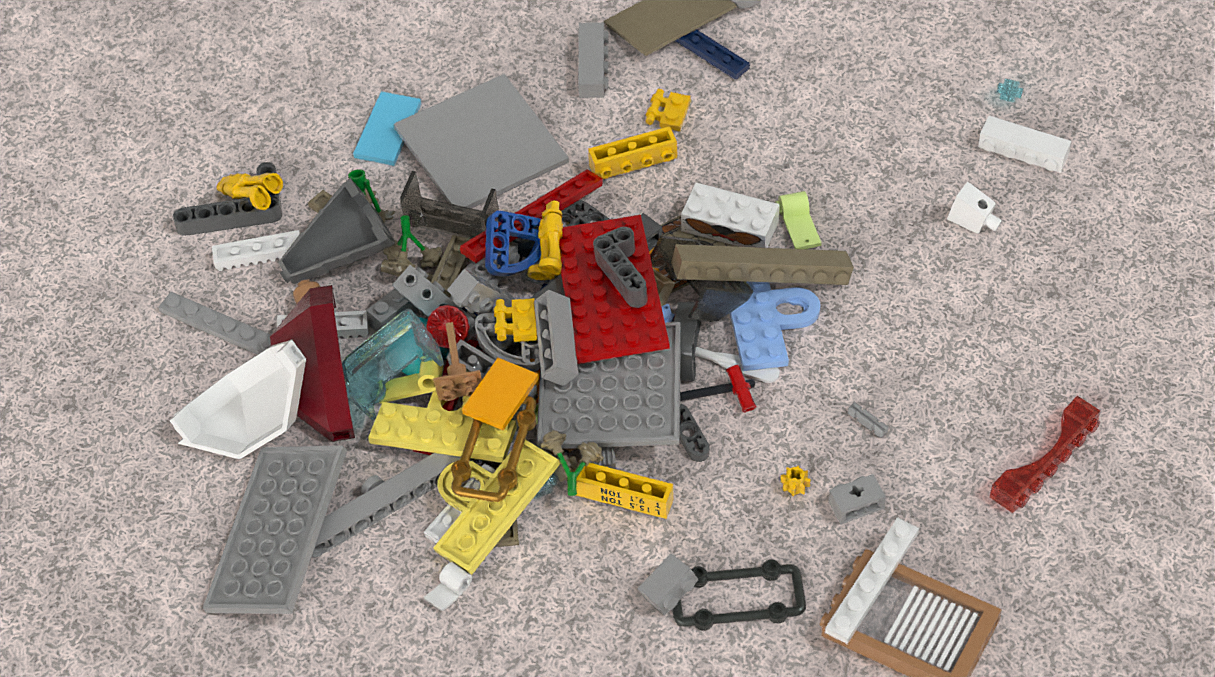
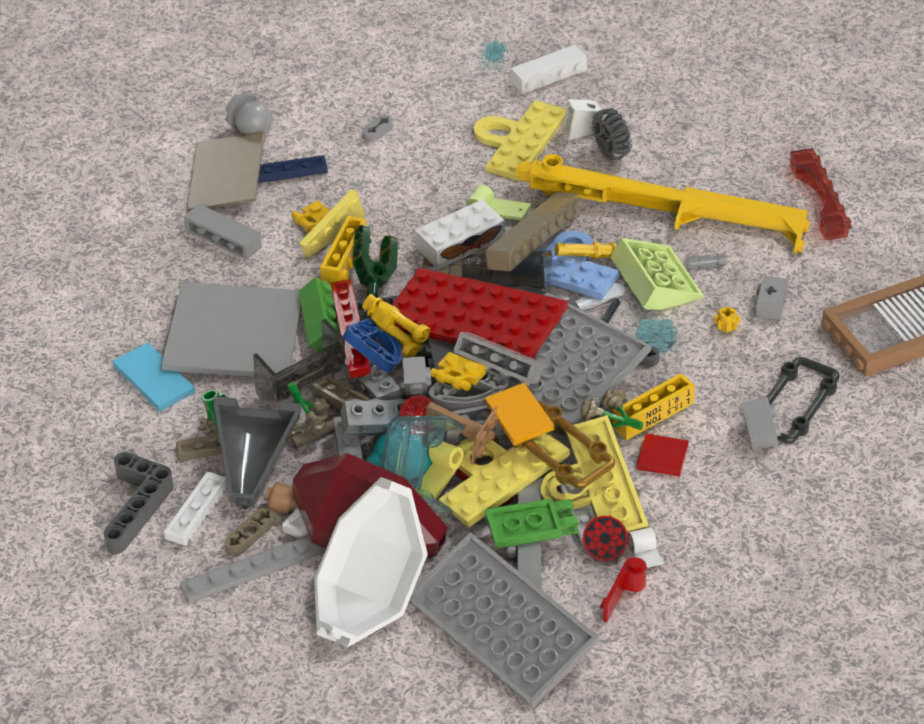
camera: 55 degrees left, 10 degrees down
(253, 187) = (120, 486): yellow piece -> none
(255, 294) = (252, 522): none -> dark tan beam
(399, 482) = (531, 522): none -> bright green tile
(401, 591) = (630, 578): none -> red door
(429, 548) = (605, 538): none -> tile
(549, 177) = (317, 305): none -> bright green brick
(579, 533) = (662, 455): none -> red tile
(611, 256) = (473, 291): dark grey beam -> none
(620, 178) = (369, 272): none -> dark green piece
(684, 123) = (330, 225): none -> light yellow wing
(731, 427) = (664, 328): none -> clear light blue plate
(741, 388) = (620, 305): red pin -> none
(797, 326) = (592, 250): none -> yellow pin
(810, 391) = (654, 274): none -> yellowish green slope
(825, 76) = (377, 128): none -> light grey beam
(872, 580) = (855, 318): white plate -> none
(911, 188) = (525, 139): none -> light yellow plate
(926, 356) = (689, 203): none -> yellow piece
(960, 243) = (611, 134): none -> dark grey gear

